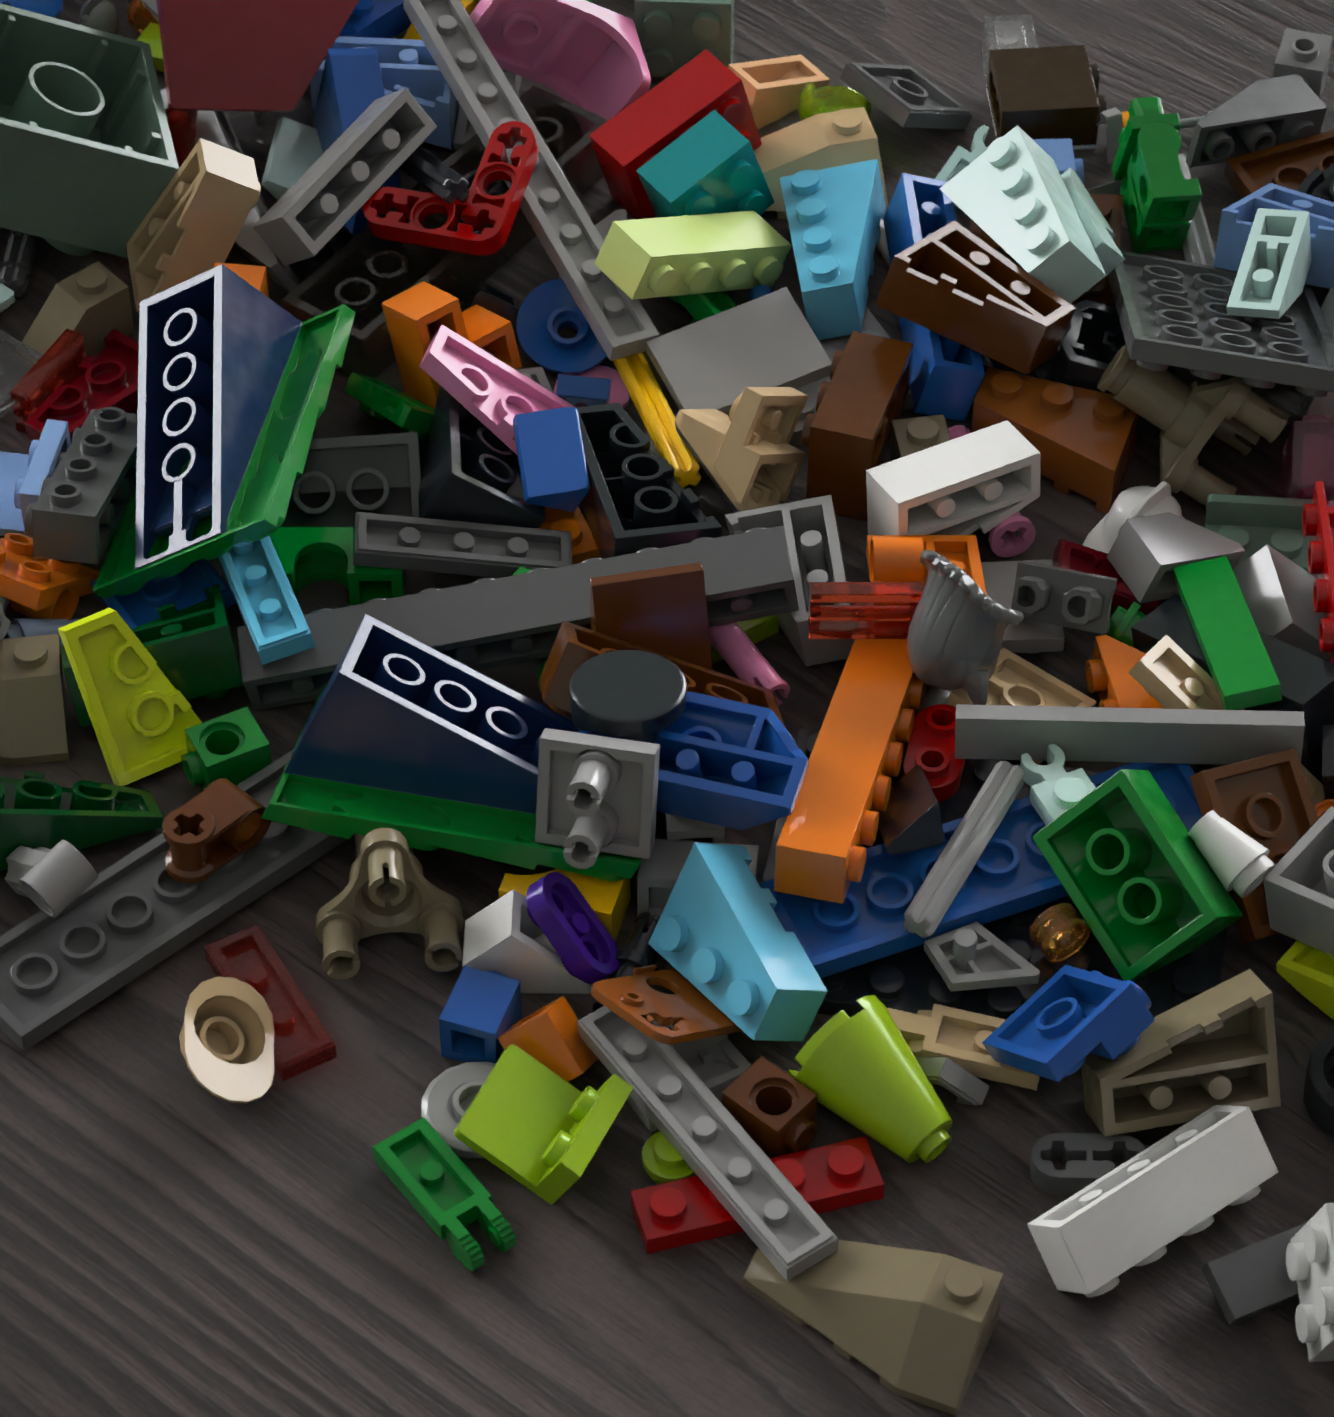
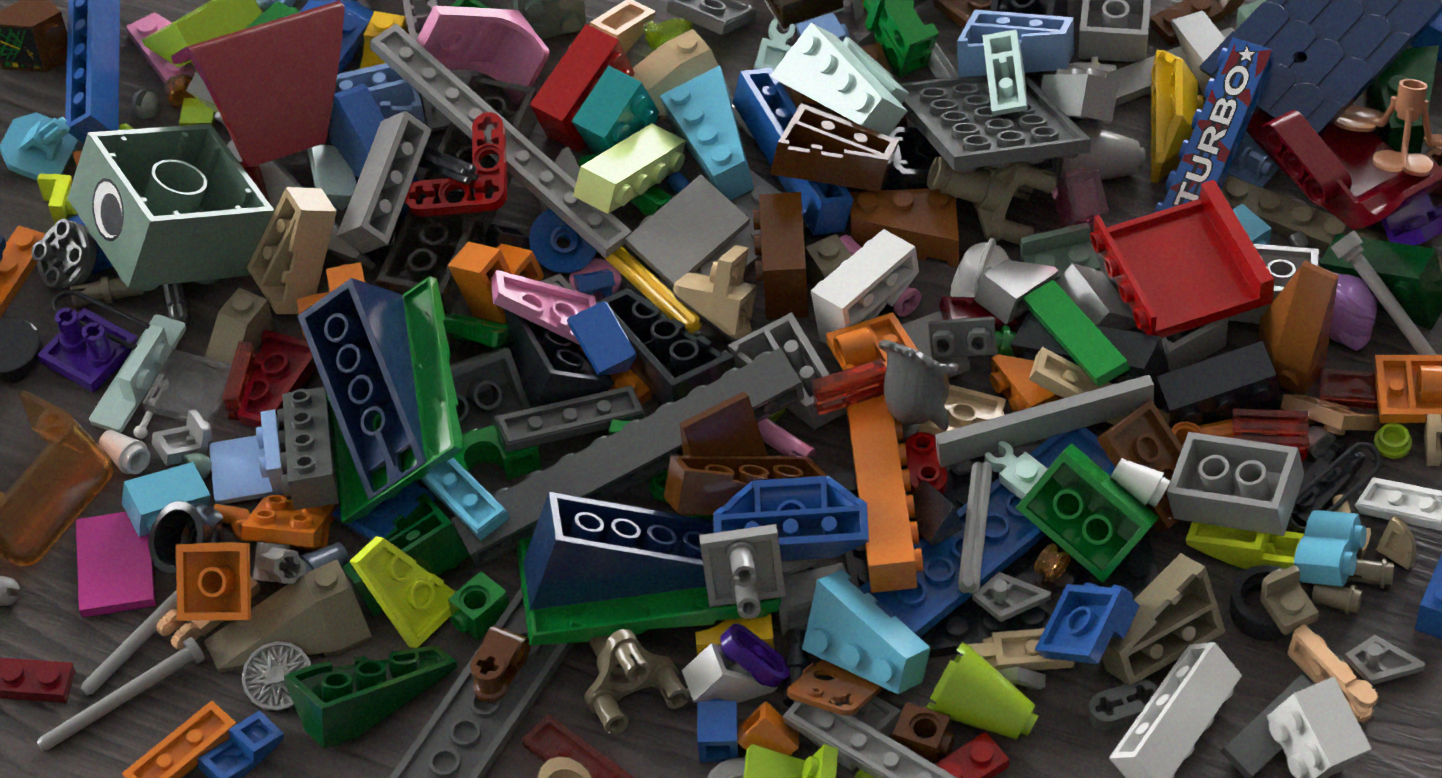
camera: 15 degrees left, 5 degrees up
(50, 876) = (407, 726): light grey piece -> none
(627, 694) = (738, 496): black tile -> none

